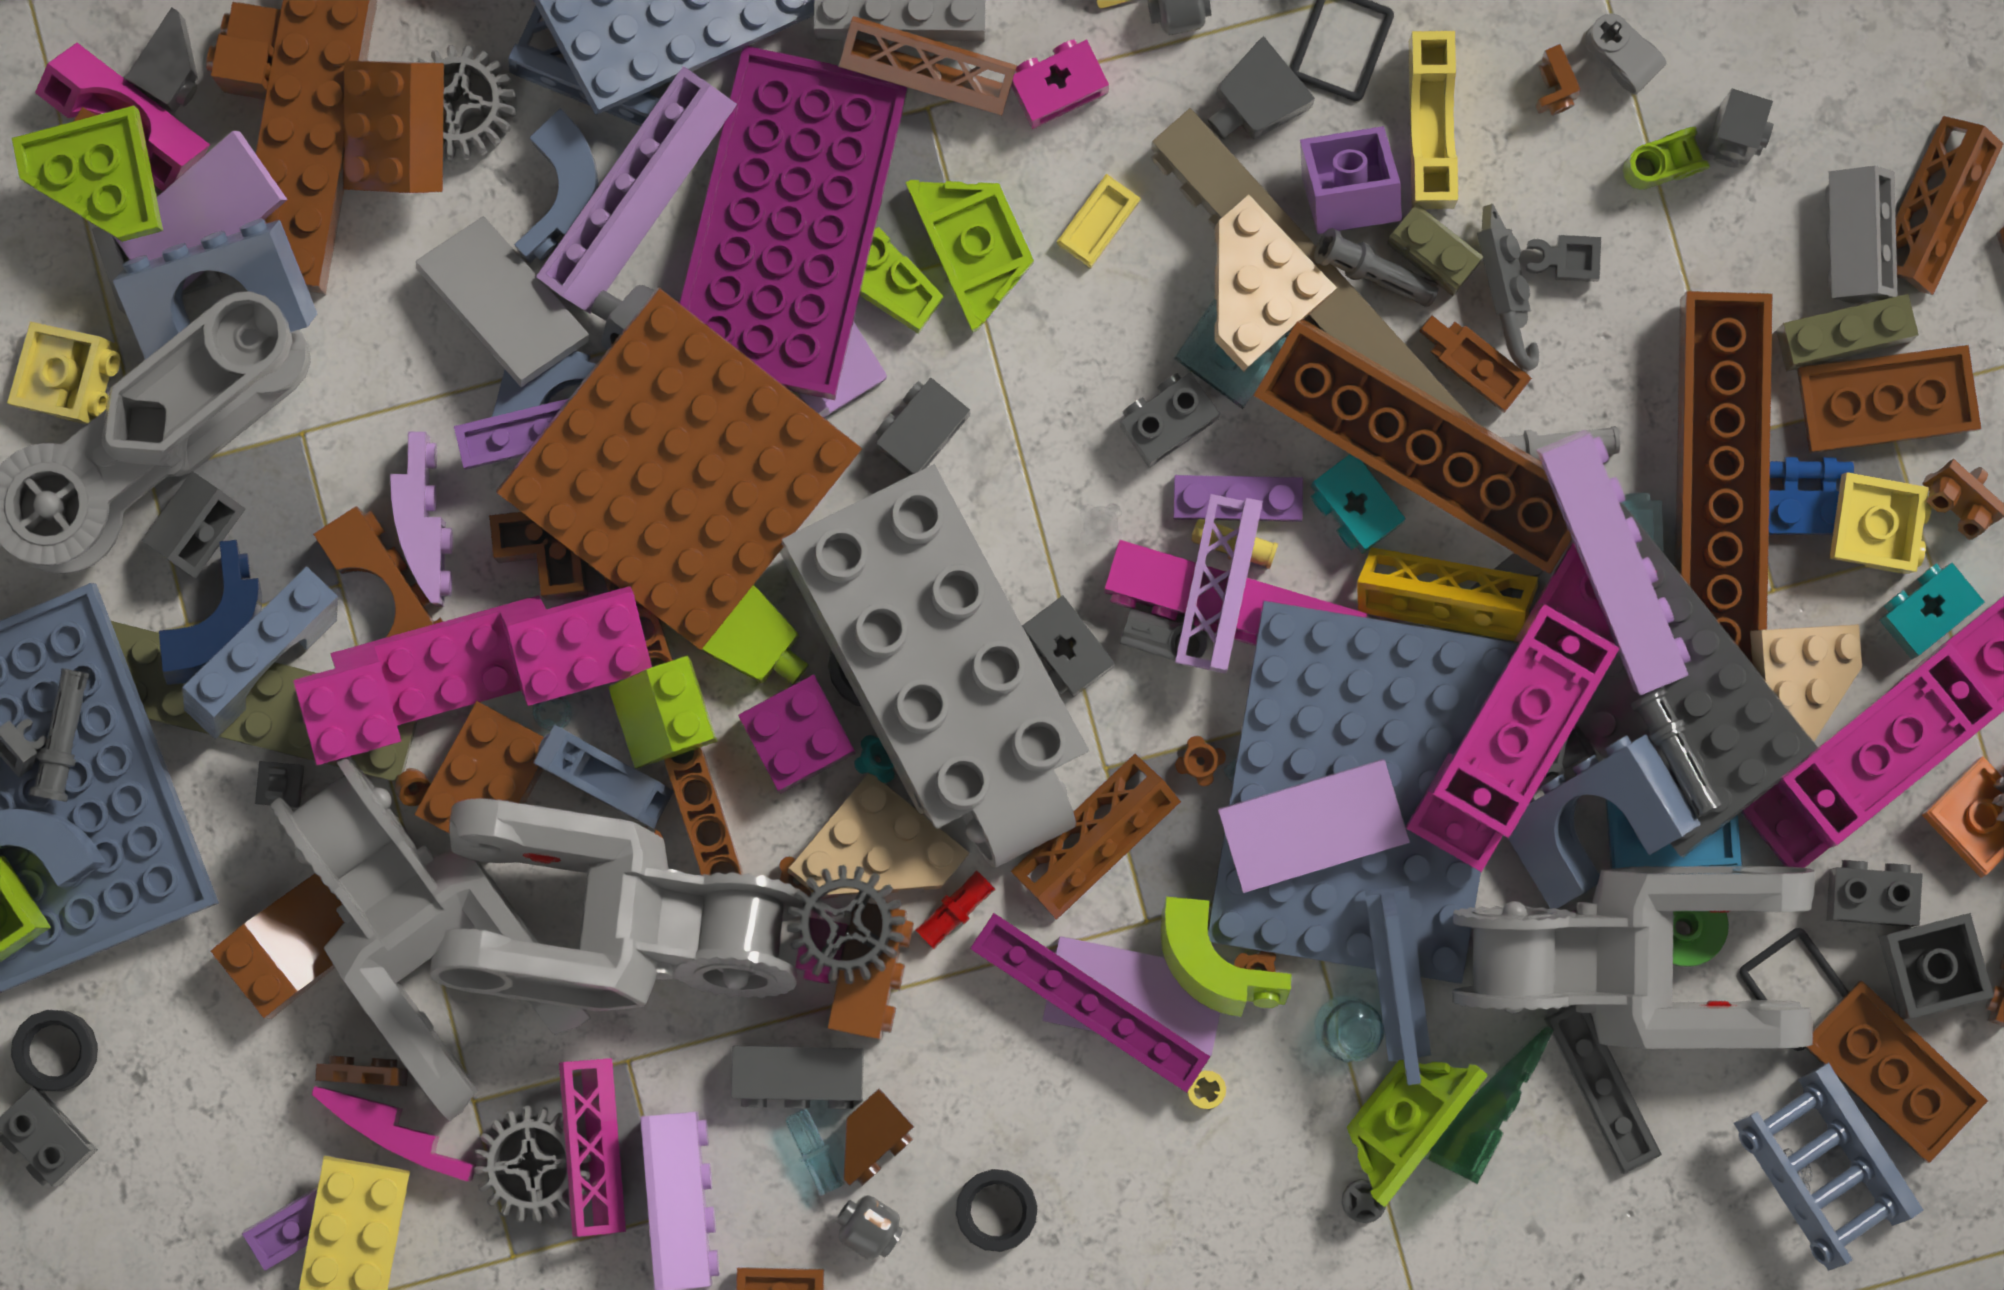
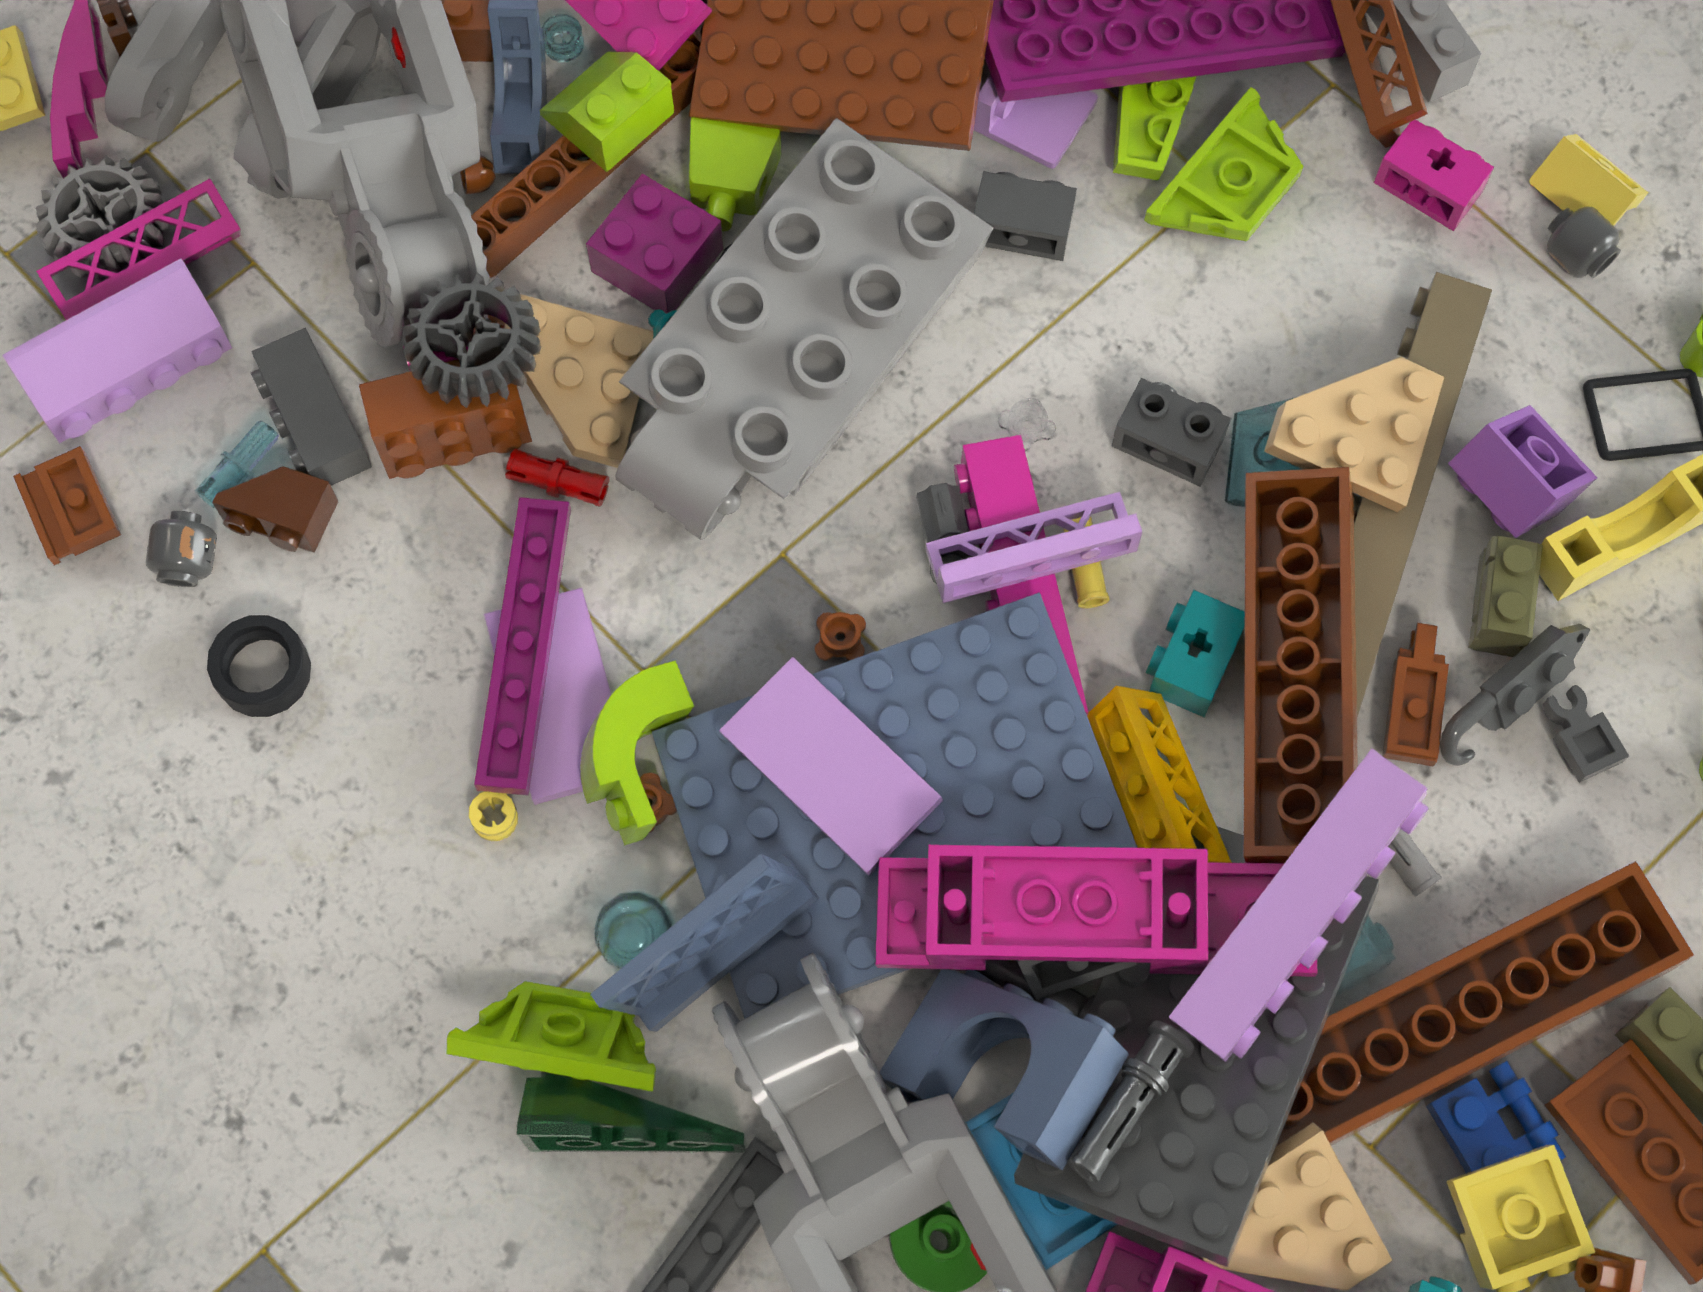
camera: 60 degrees right, 15 degrees down
(1089, 659) = (882, 474): dark grey brick -> none
(1098, 221) = (1325, 279): light yellow tile -> none
(1101, 840) = (704, 576): dark orange fence -> none
(1259, 94) = (1547, 356): dark grey torso -> none
(1280, 496) = (1150, 571): medium lavender plate -> none
(1360, 262) = (1446, 519): dark grey pin -> none
(1364, 1201) = (434, 1038): dark grey wheel -> none

